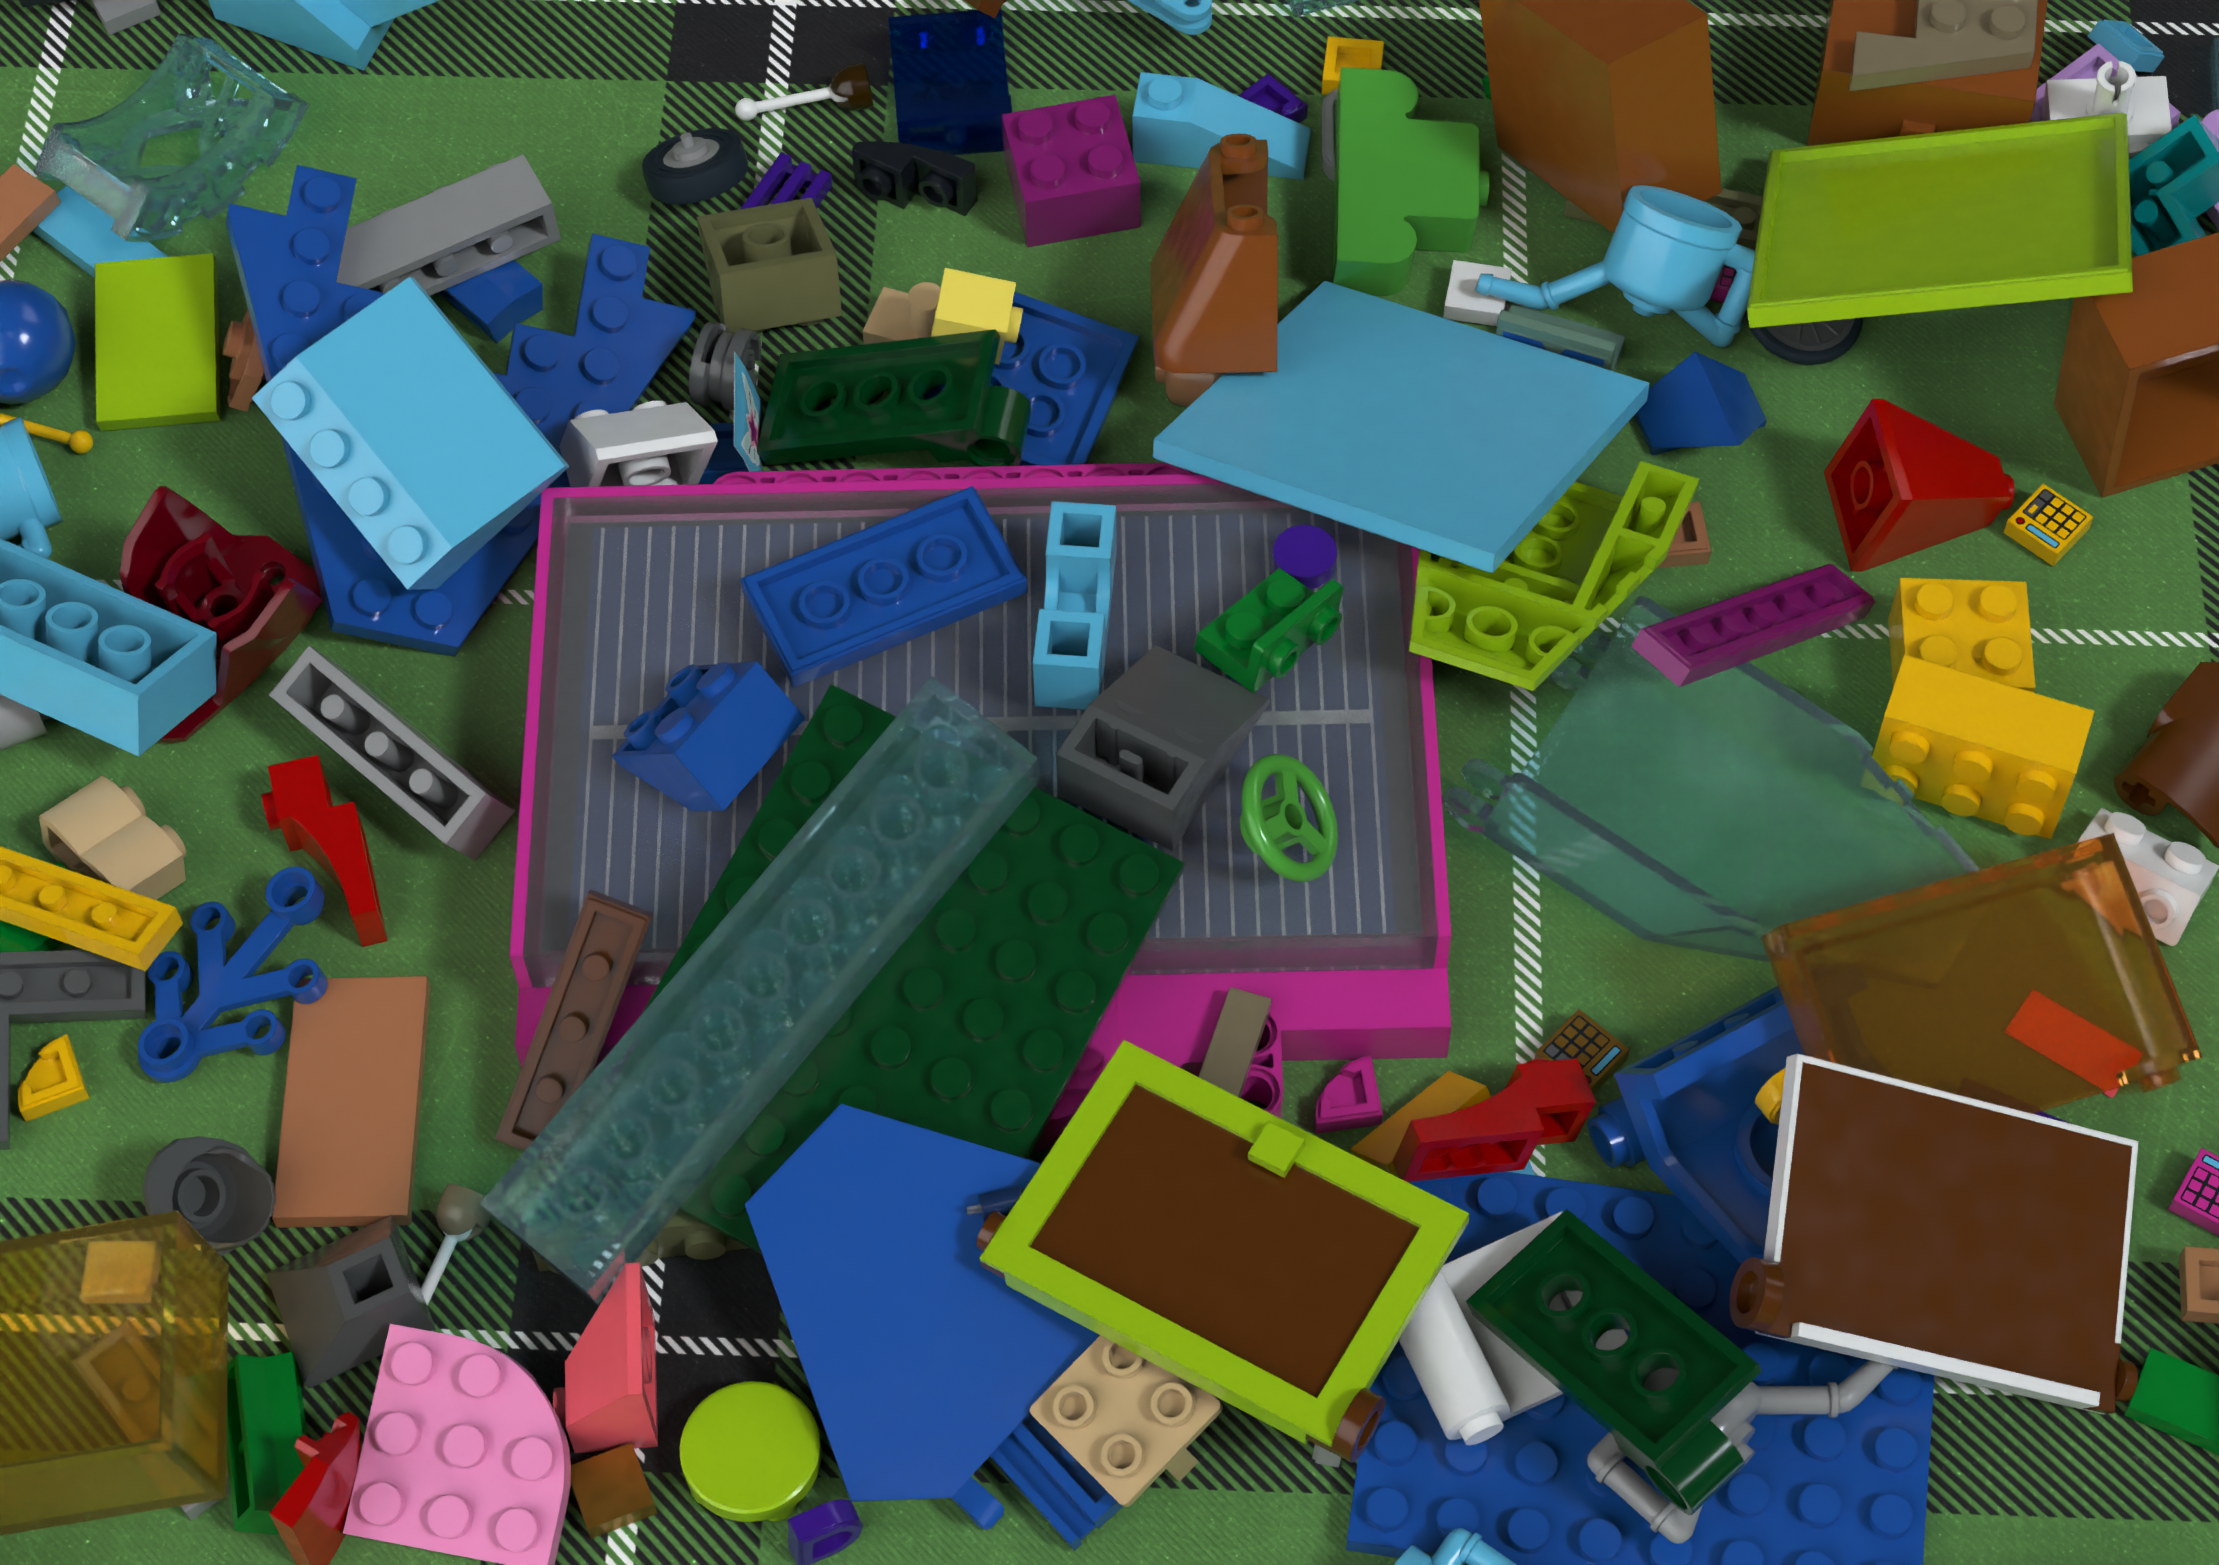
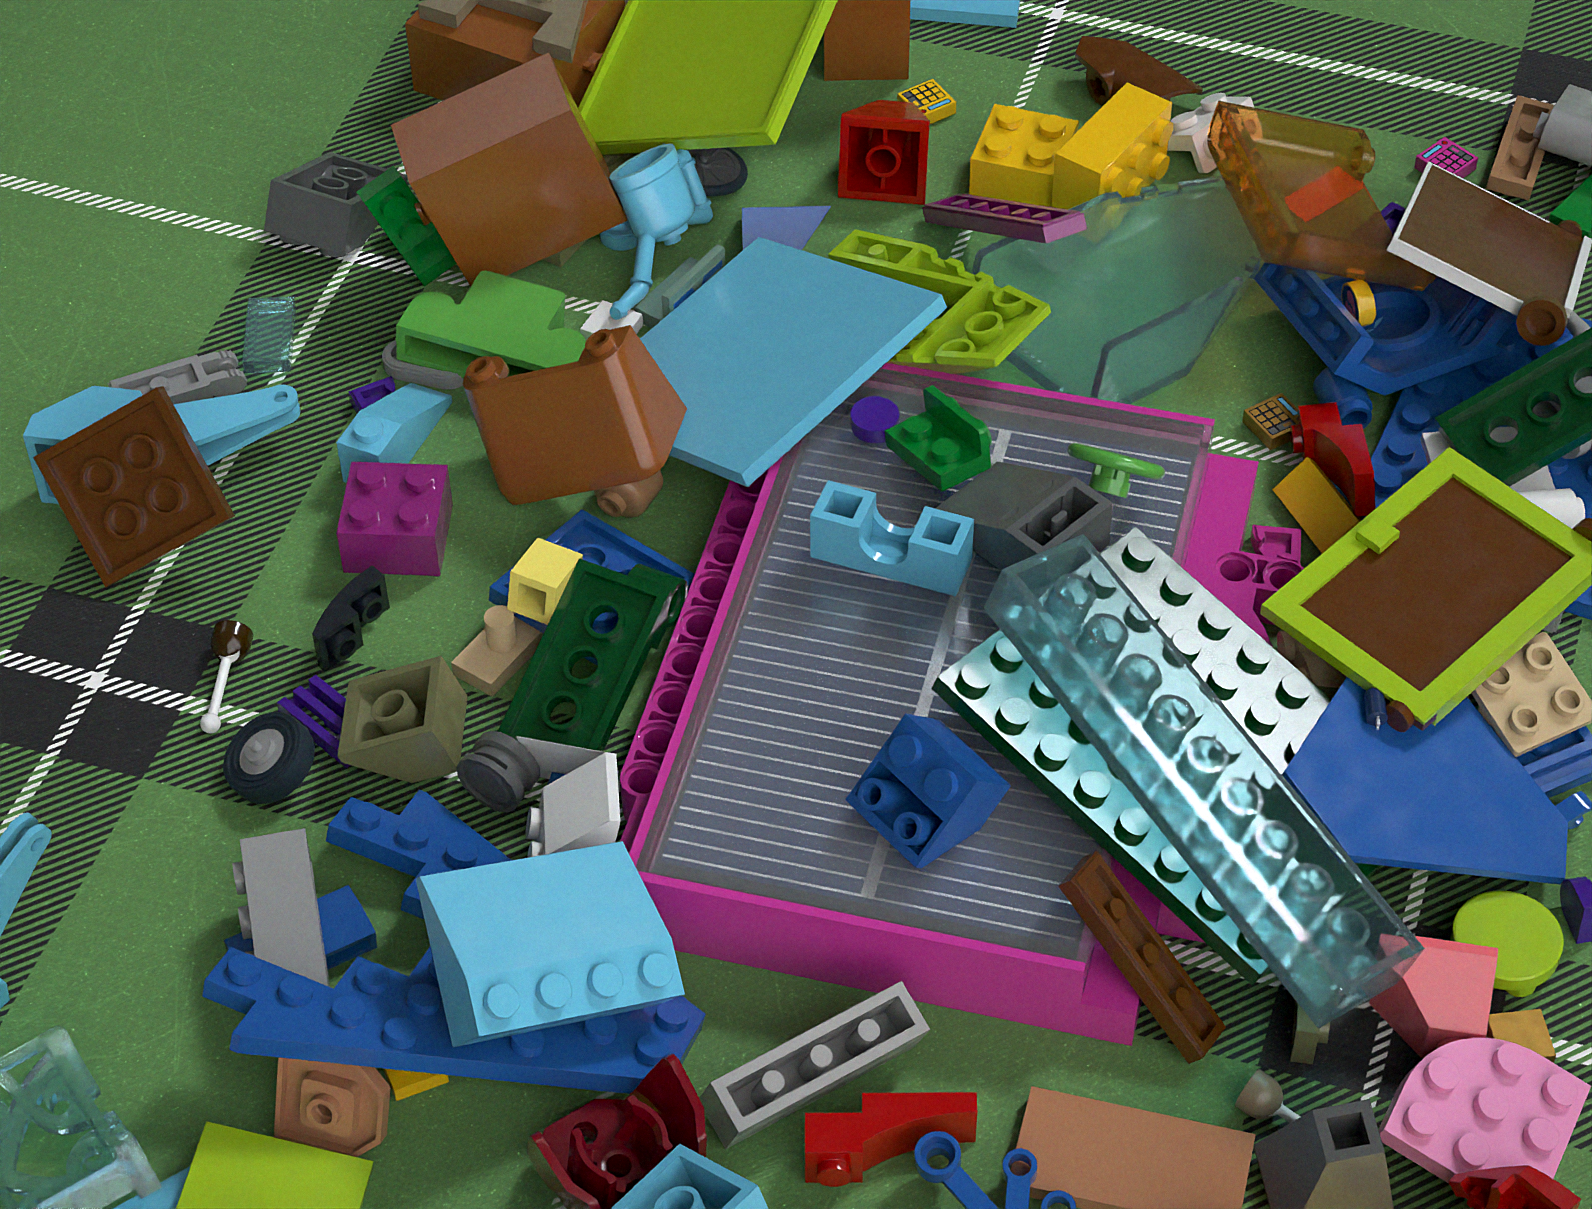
camera: 75 degrees left, 10 degrees down
(883, 586) = (818, 661): blue piece -> none
(950, 81) = (261, 586): clear blue panel -> none
(1235, 1040) = (1245, 571): dark tan piece -> none
(1350, 54) = (362, 346): yellow tile -> none

